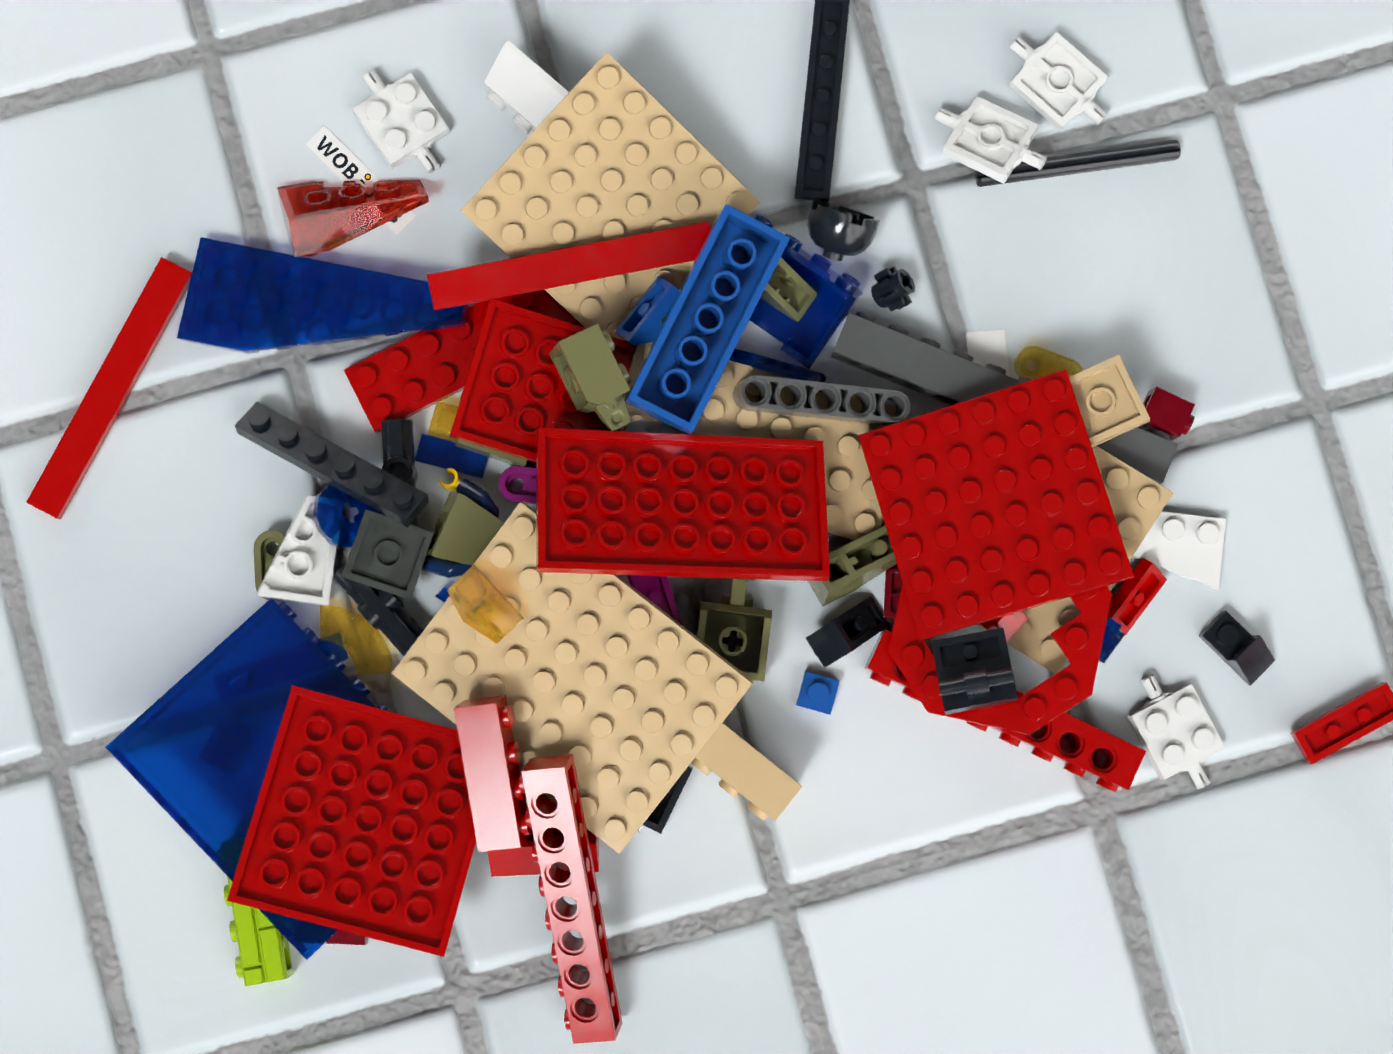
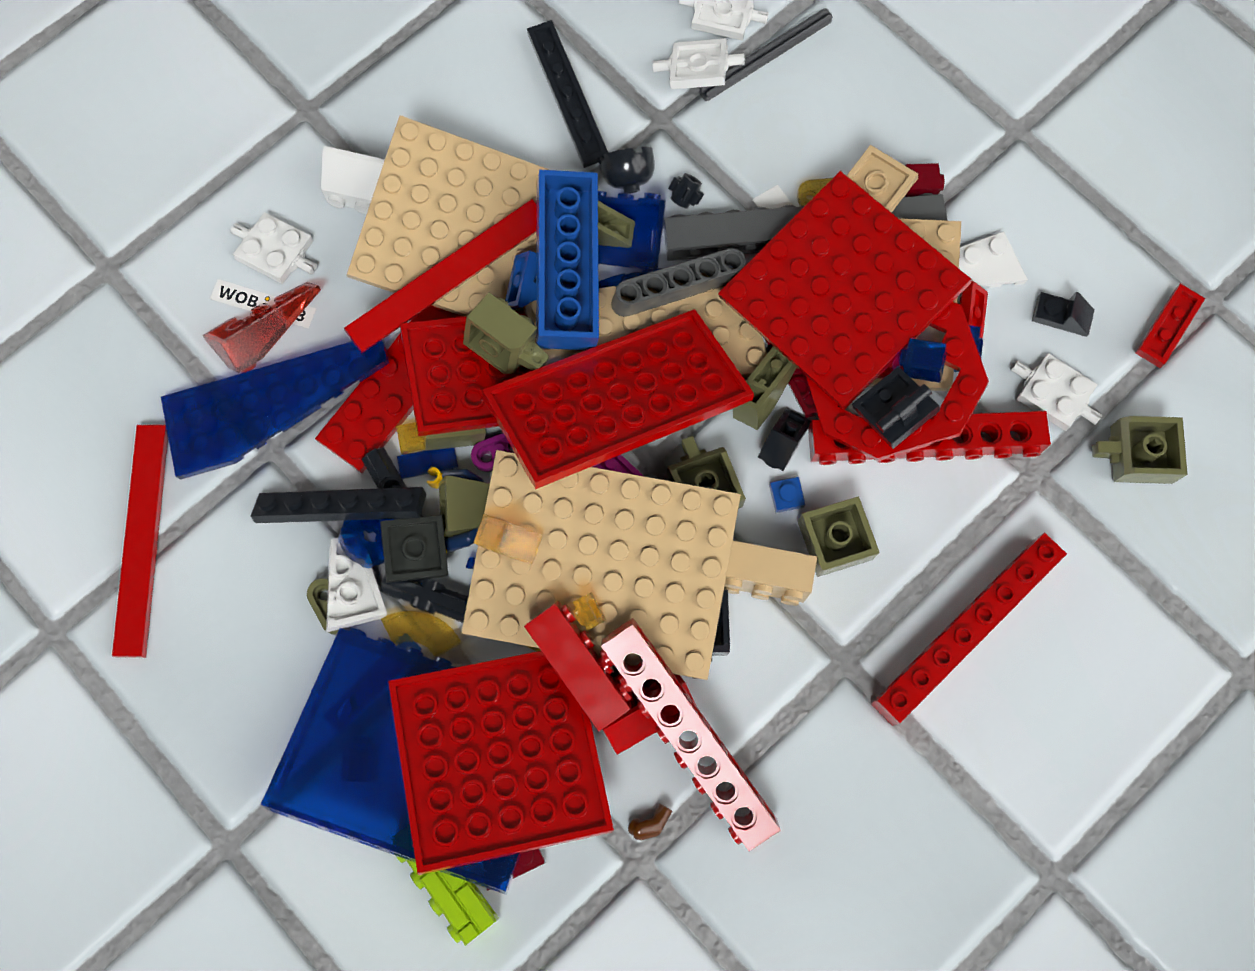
camera: 25 degrees left, 10 degrees down
(489, 965) = (650, 827): none -> reddish brown arm
(529, 725) = (588, 611): none -> clear yellow plate
(843, 770) = (838, 536): none -> olive brick
(928, 937) = (968, 629): none -> red brick
(1033, 636) = (924, 360): none -> clear blue brick
(1209, 844) = (1145, 449): none -> olive hinge

